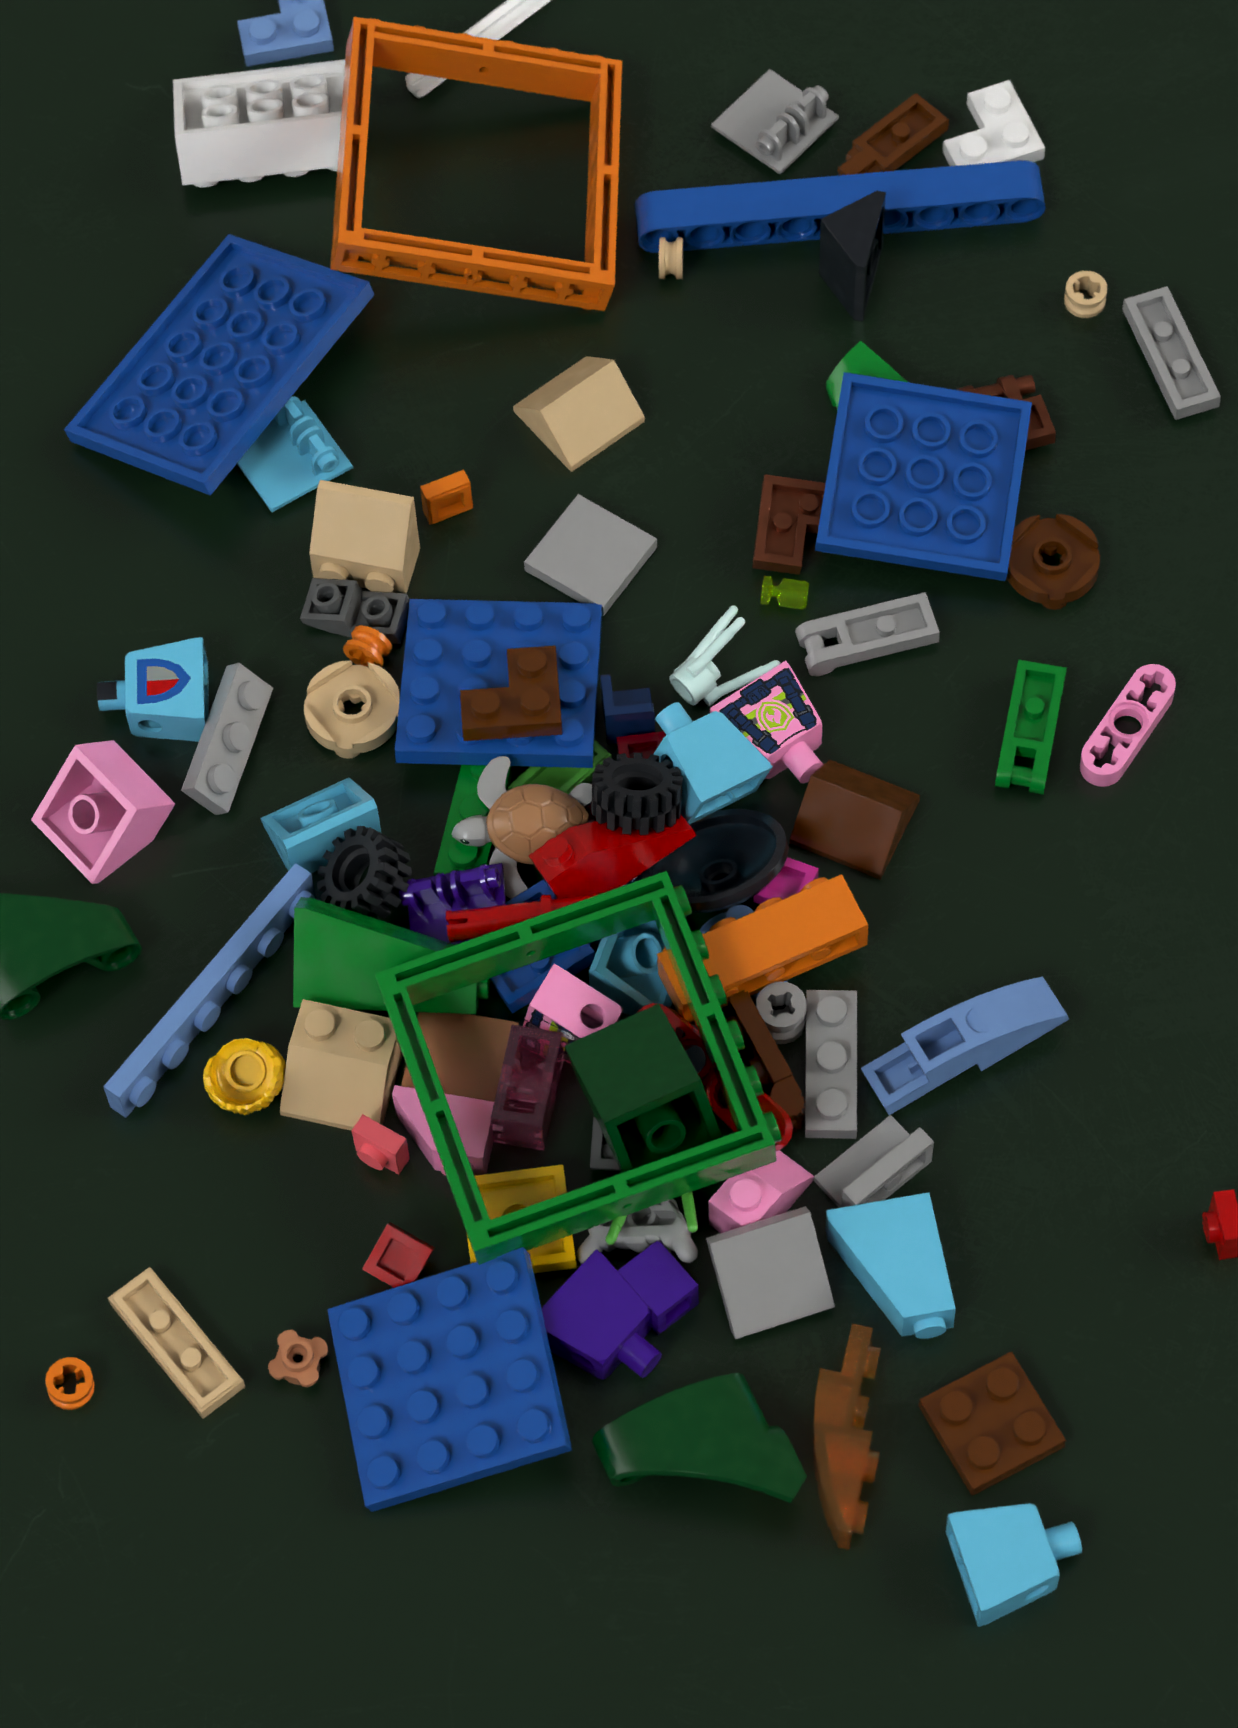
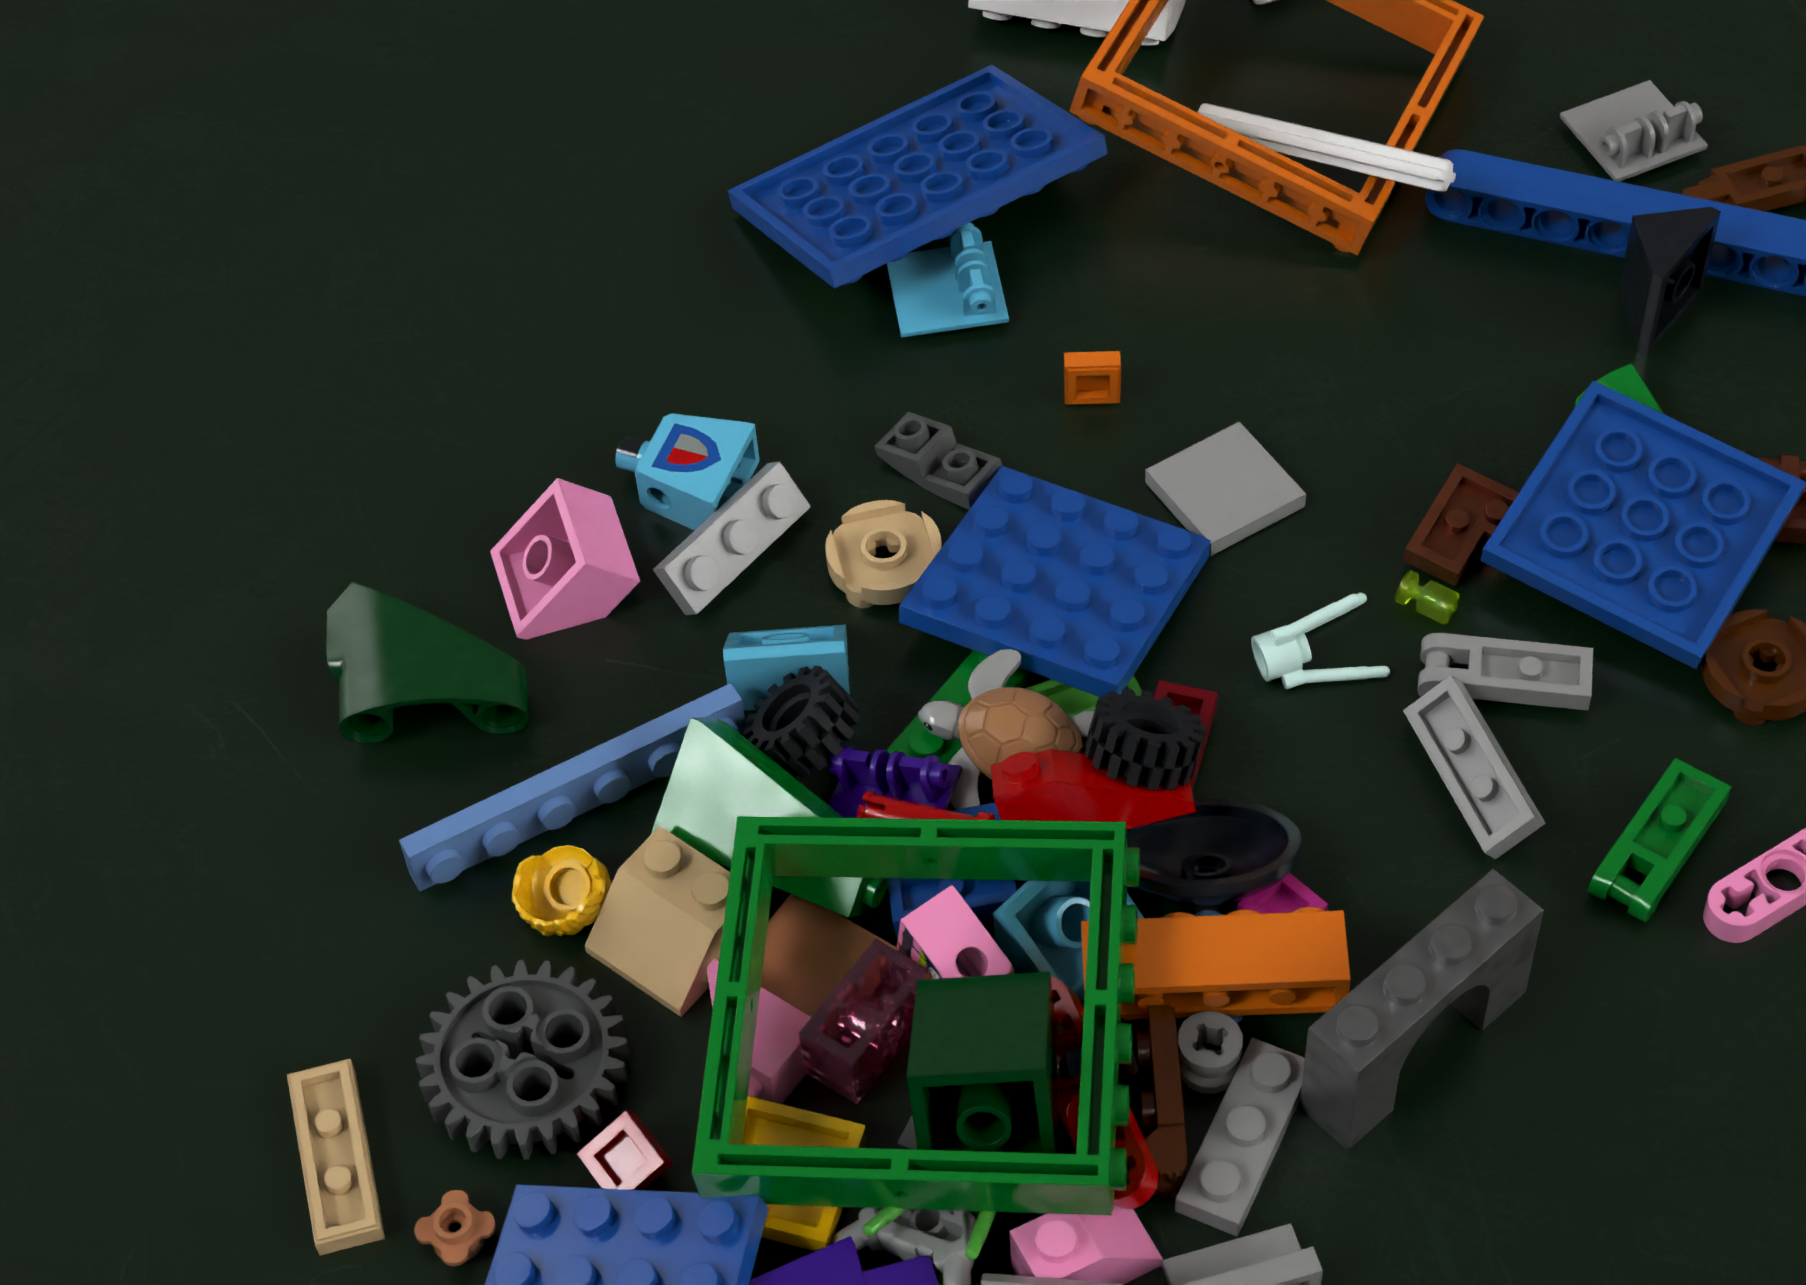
camera: 25 degrees right, 10 degrees down
(56, 1376) = (187, 1138): orange bush -> none
(279, 1258) = (523, 1059): none -> dark grey gear
(364, 537) = (980, 382): tan slope -> none
(367, 646) = (931, 496): orange bush -> none
(379, 1145) = (669, 1024): coral plate -> none
(524, 708) = (1058, 608): reddish brown plate -> none
(544, 229) = (1337, 149): none -> white axle
(581, 411) = (1285, 345): tan slope -> none
(626, 711) = (1182, 657): dark blue panel -> none
(670, 257) = (1453, 223): tan bush -> none
(713, 759) = (1251, 740): medium azure torso -> none
(777, 721) = (1344, 729): torso -> none
(853, 818) = (1396, 865): reddish brown slope -> none
(876, 719) = (1473, 767): none -> light grey plate
(936, 887) = (1467, 957): none -> flat silver arch
(961, 1037) = (1414, 1159): medium blue slope -> none

